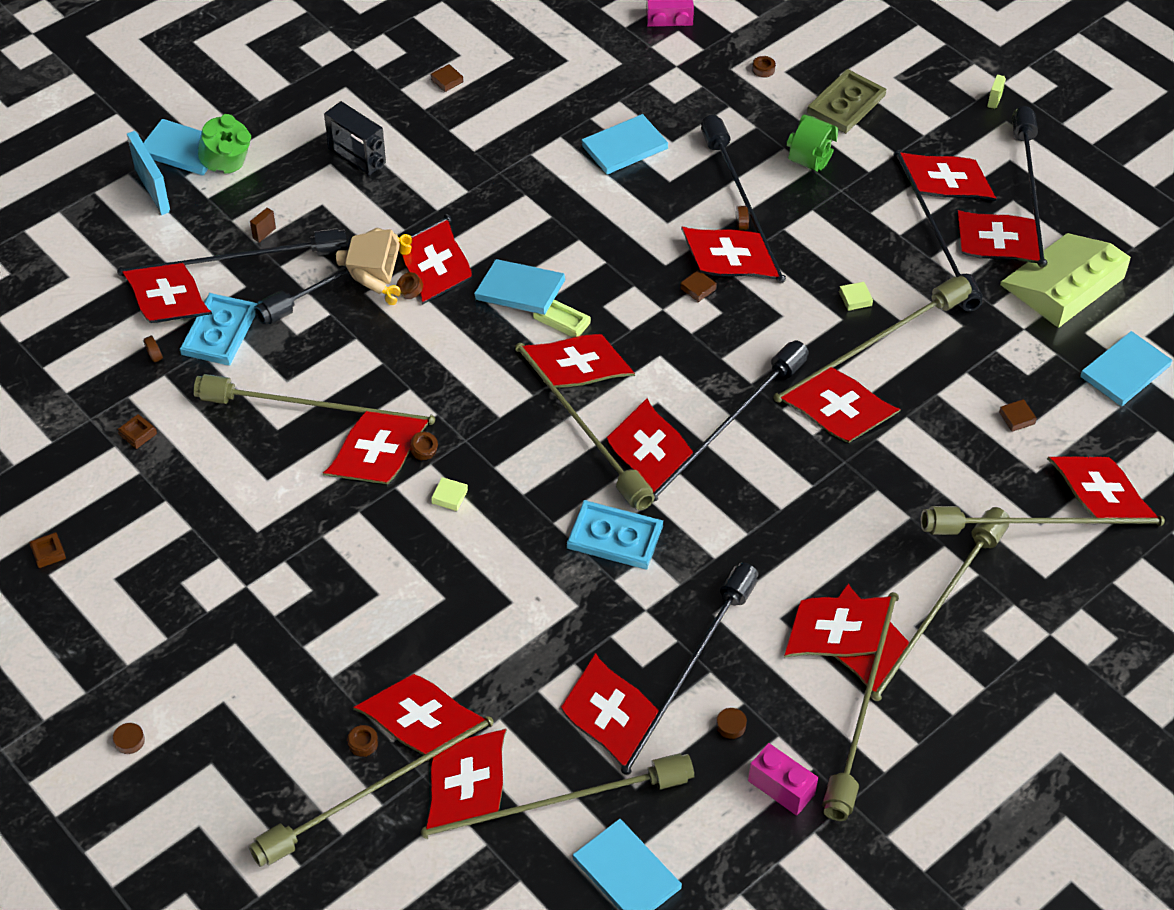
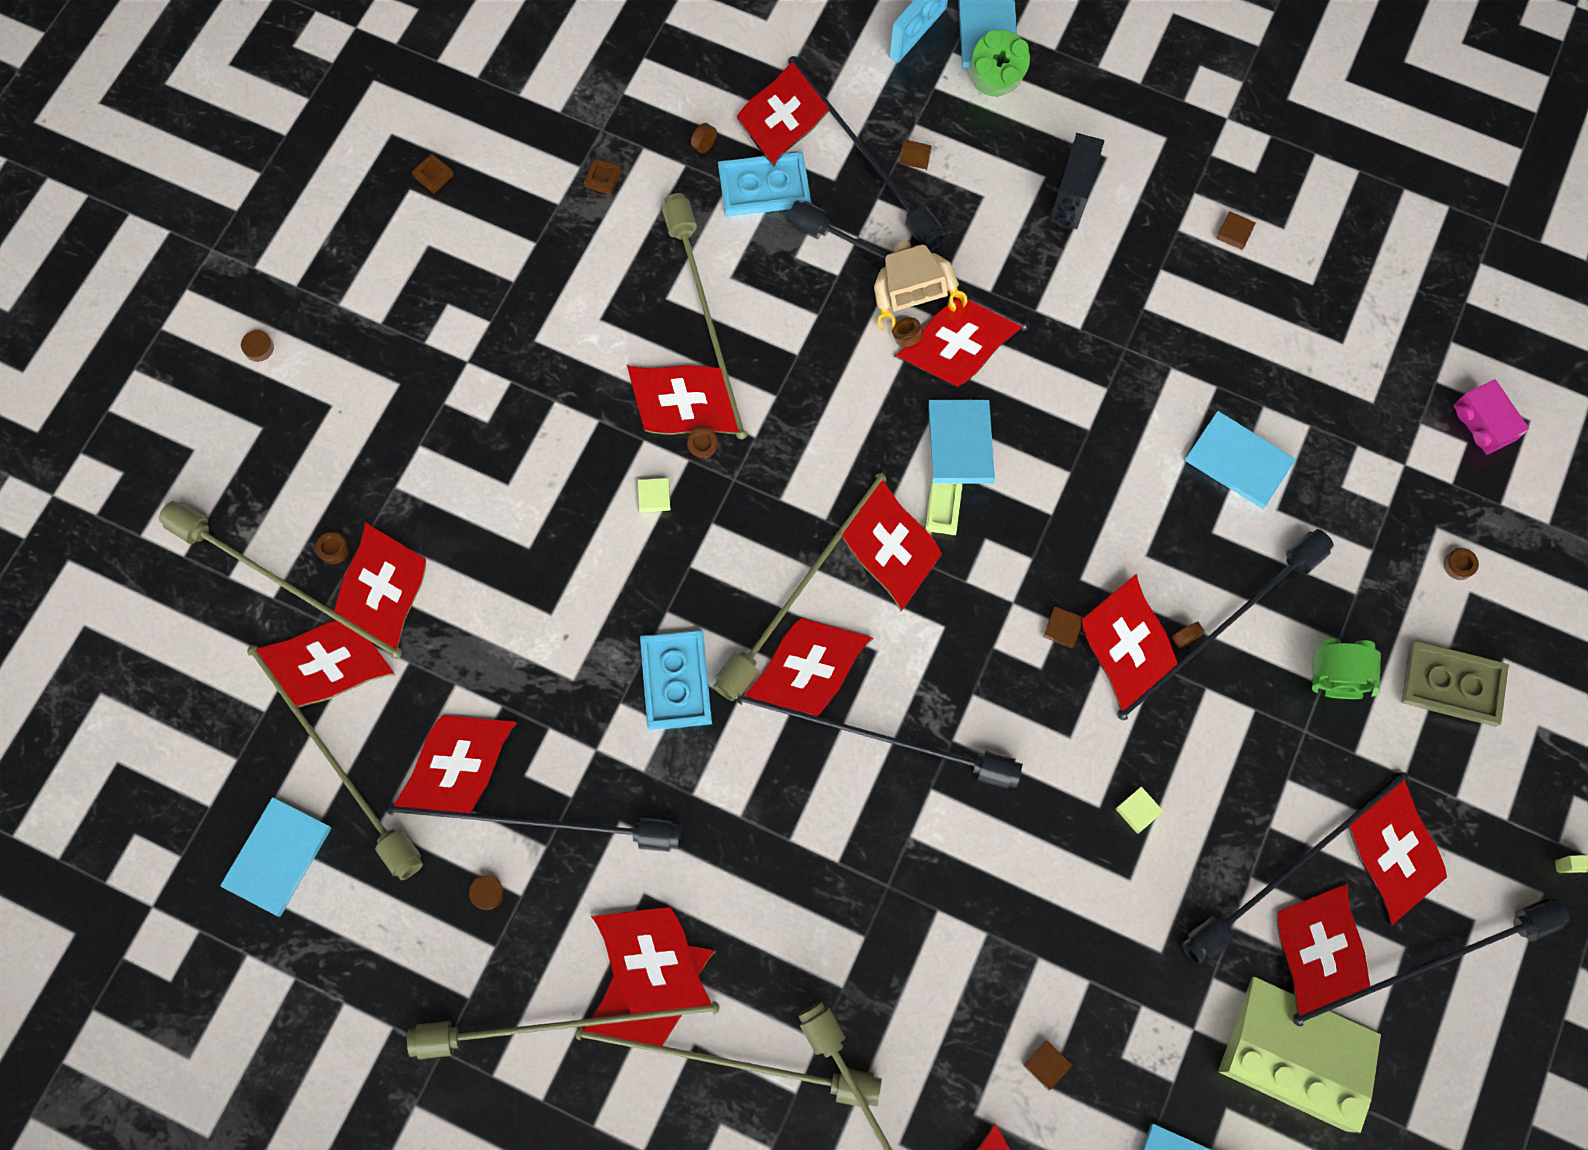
camera: 65 degrees right, 20 degrees up
(782, 779) = (428, 972): dark pink brick -> none
(841, 402) = (968, 847): flag -> none

